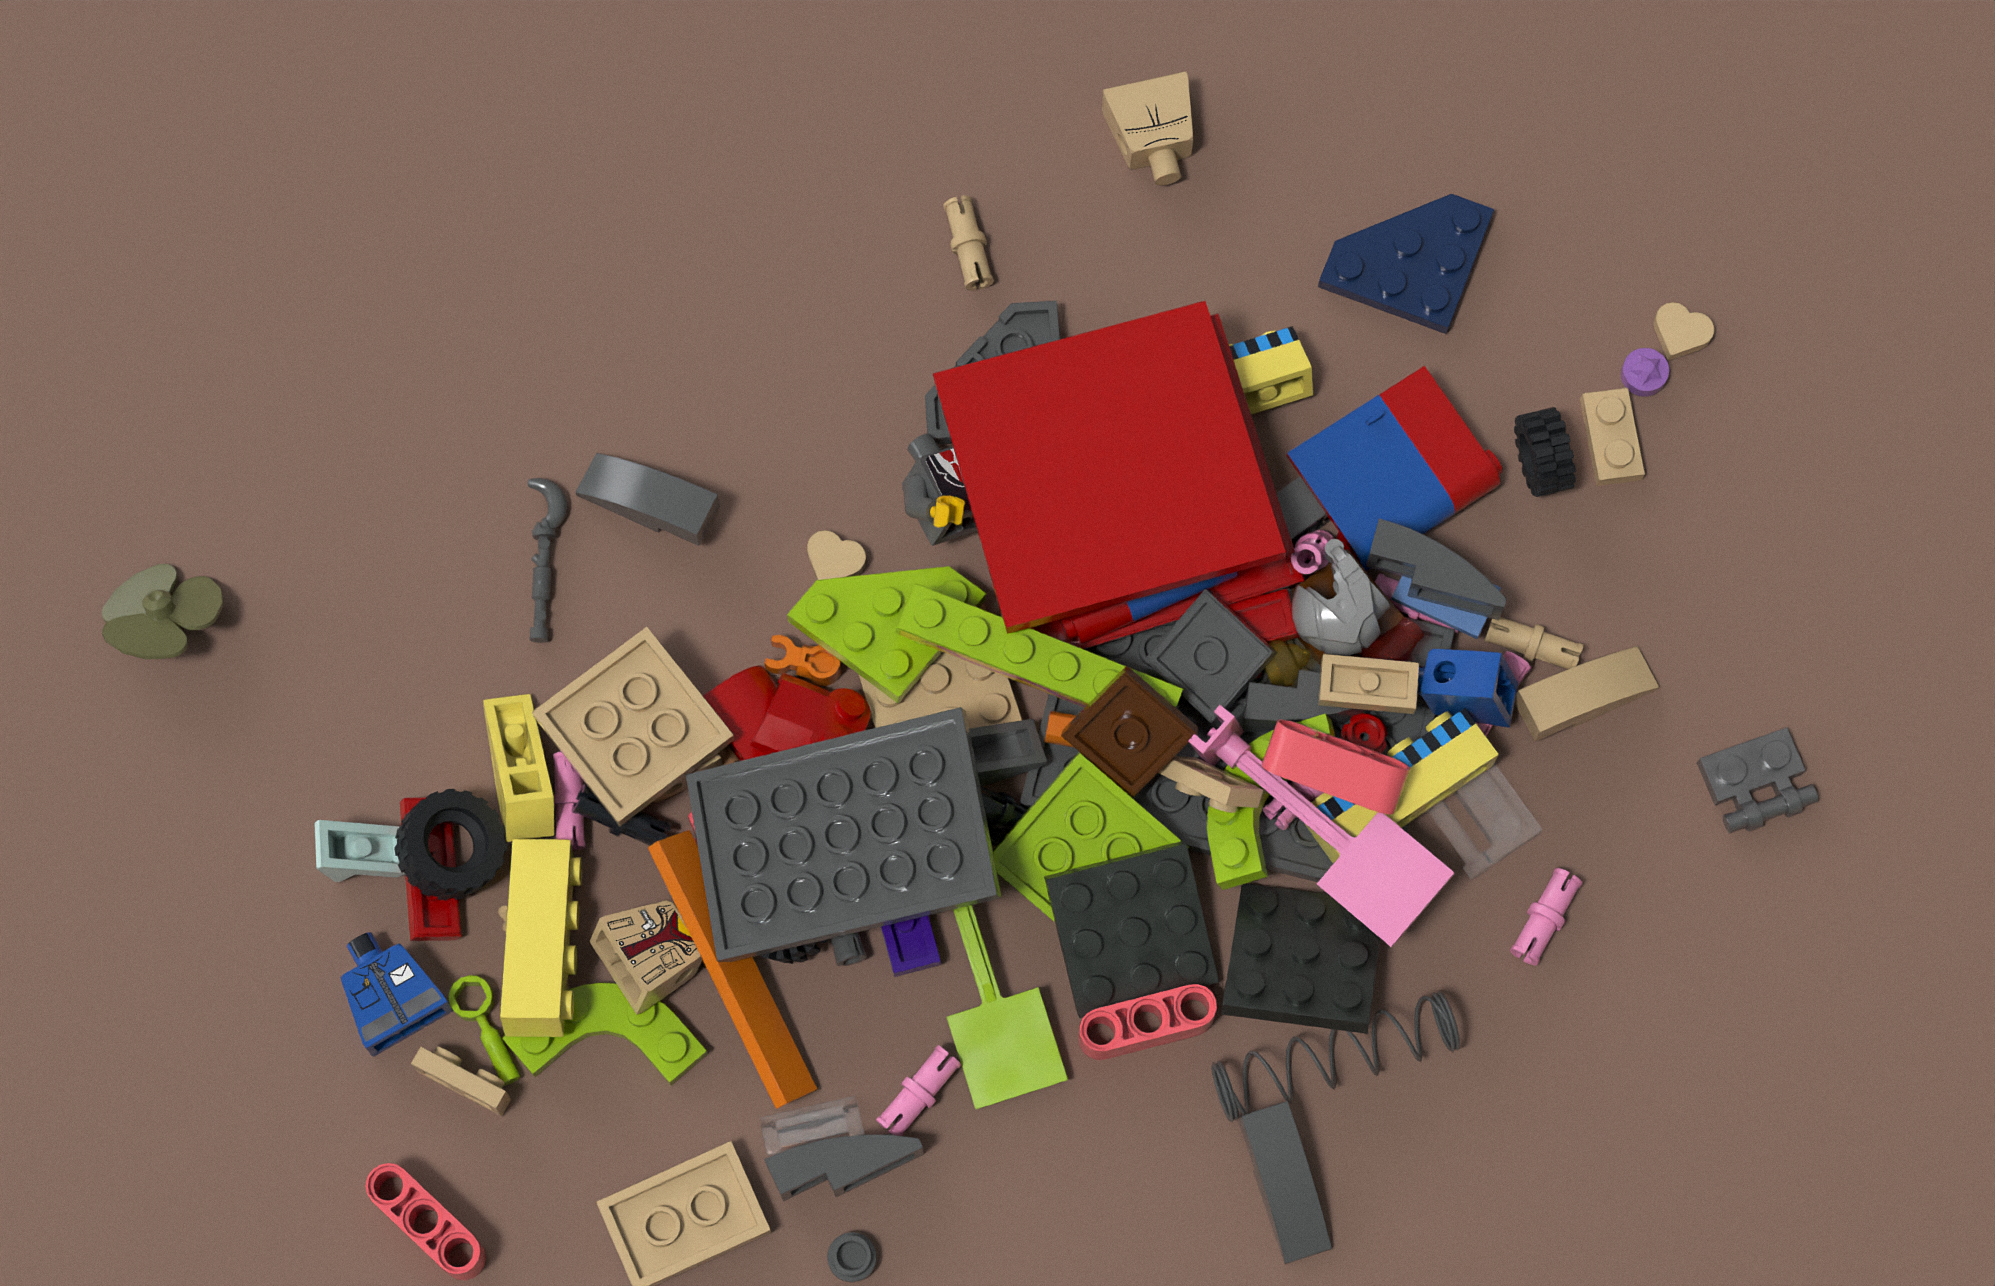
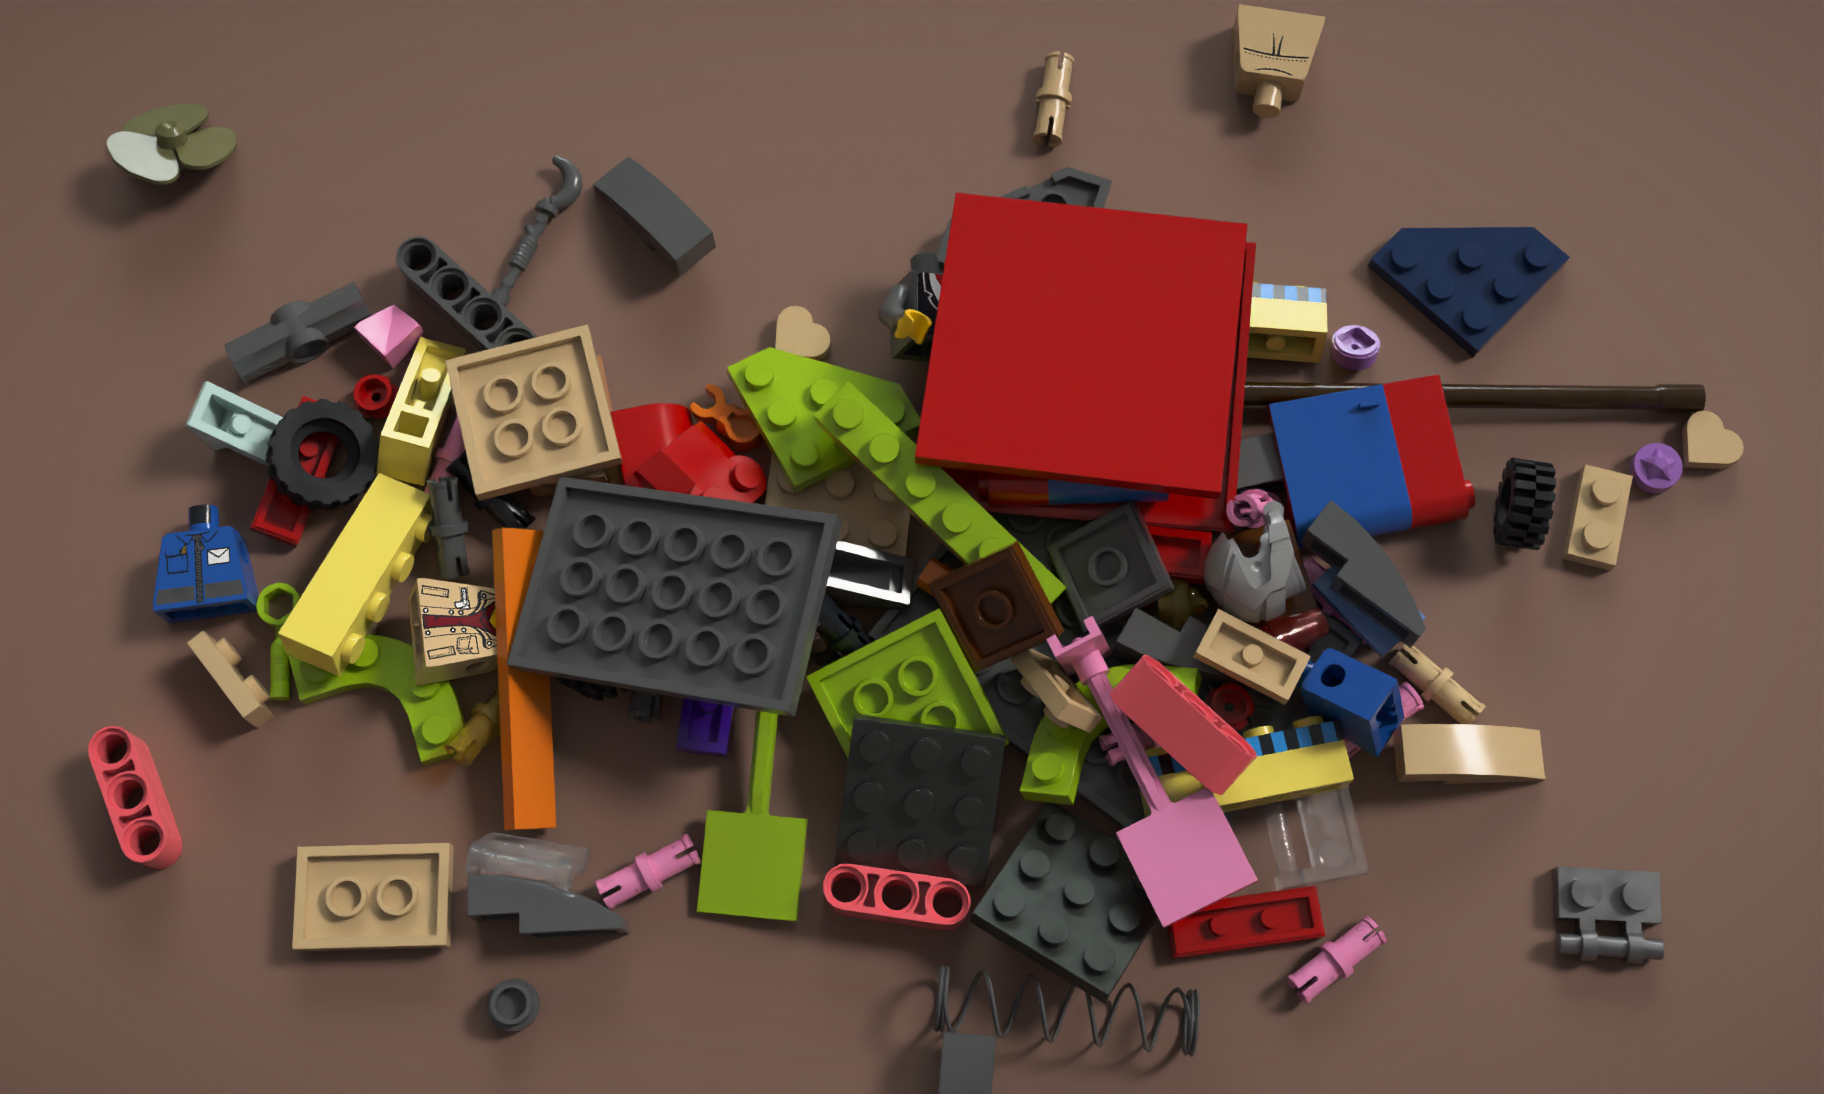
camera: 25 degrees right, 0 degrees up
(368, 741) = (297, 332): none -> dark grey piece
(454, 708) = (390, 334): none -> bright pink slope
(468, 760) = (367, 388): none -> red plate
(516, 661) = (467, 310): none -> dark grey beam
(598, 862) = (448, 527): none -> dark grey pin
(713, 1025) = (477, 731): none -> clear yellow pin
(1338, 368) = (1354, 347): none -> medium lavender tile
(1458, 917) = (1249, 923): none -> red tile
(1622, 307) = (1660, 398): none -> dark brown piece

